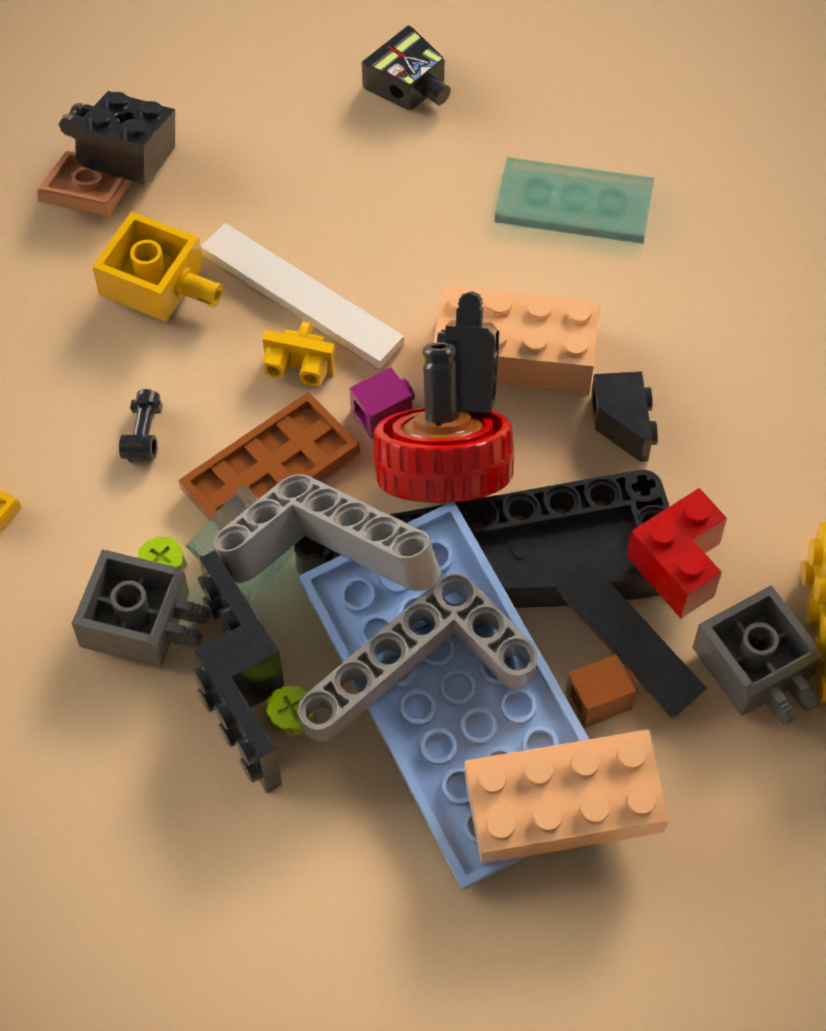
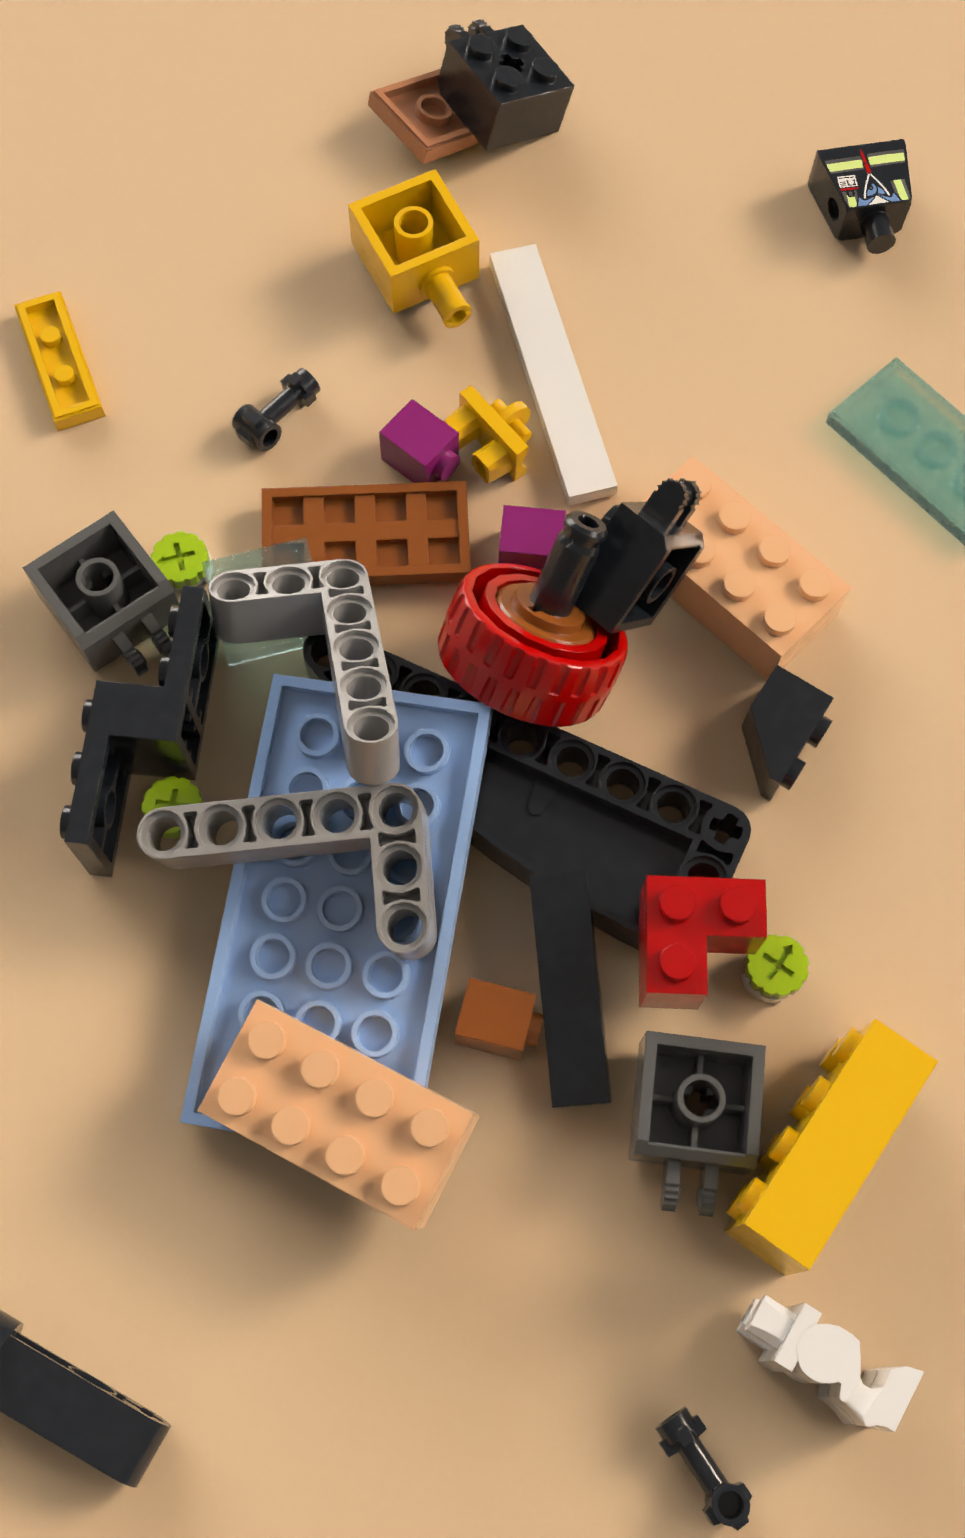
camera: 35 degrees right, 10 degrees up
(259, 389) = (420, 445): none -> magenta brick
(735, 551) = (775, 969): none -> lime piece

